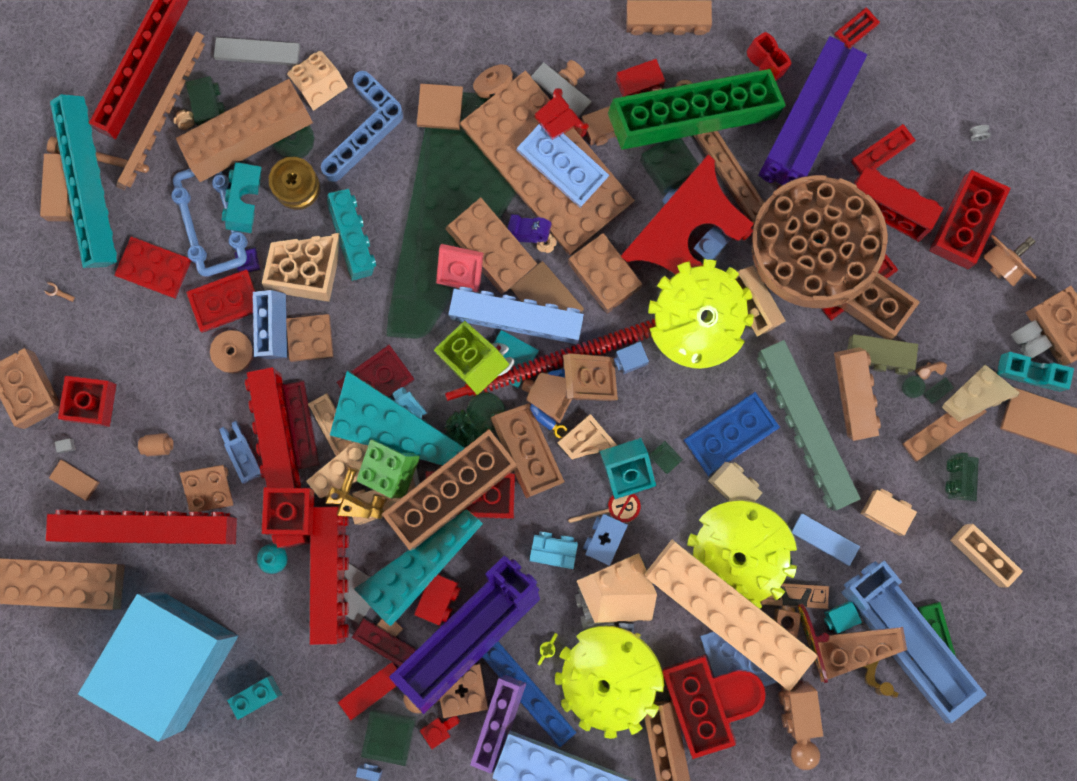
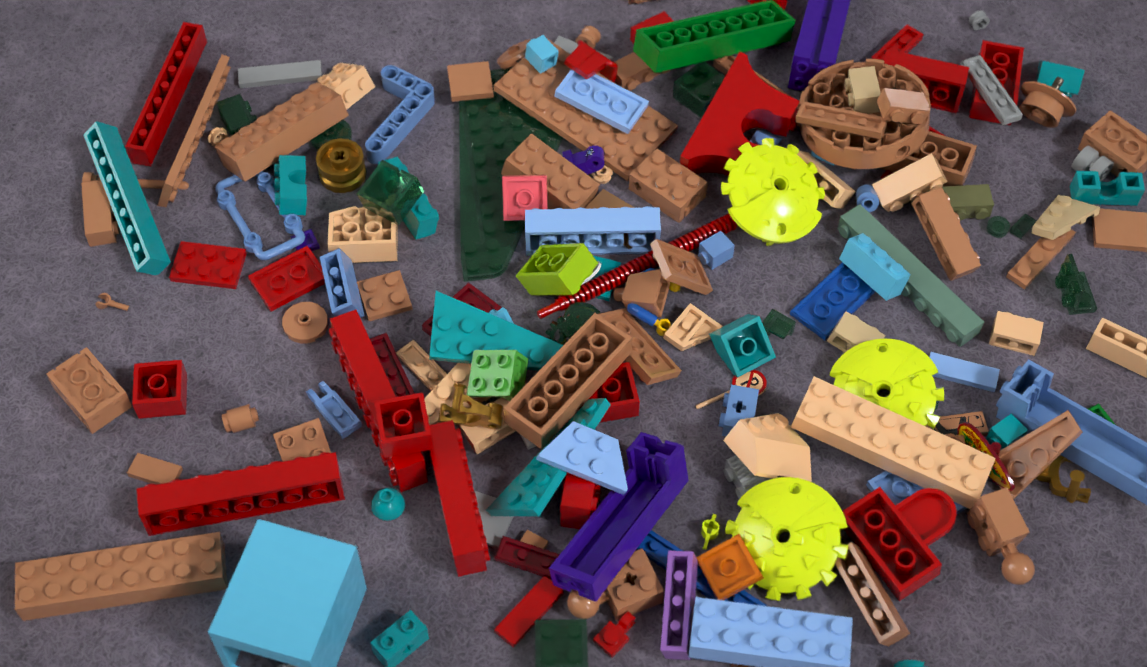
camera: 15 degrees left, 25 degrees down
(65, 445) = (140, 439): light grey piece -> none
(328, 242) = (388, 195): none -> clear green piece
(446, 576) = (588, 456): none -> light blue wing
(513, 98) = (541, 54): none -> medium azure brick
(551, 696) = (729, 568): none -> orange tile
(554, 551) = (693, 432): medium azure brick -> none
(775, 415) = (874, 266): none -> medium azure brick
(789, 256) = (841, 120): none -> nougat plate
(794, 331) = (867, 197): none -> medium blue brick
(822, 225) = (863, 89): none -> tan brick
(839, 330) = (909, 183): none -> light nougat brick
(853, 261) = (903, 106): none -> nougat brick
(925, 371) = (1004, 210): nougat piece -> none
(958, 236) = (992, 90): none -> light grey tile
(1038, 221) = (1072, 76): none -> teal slope

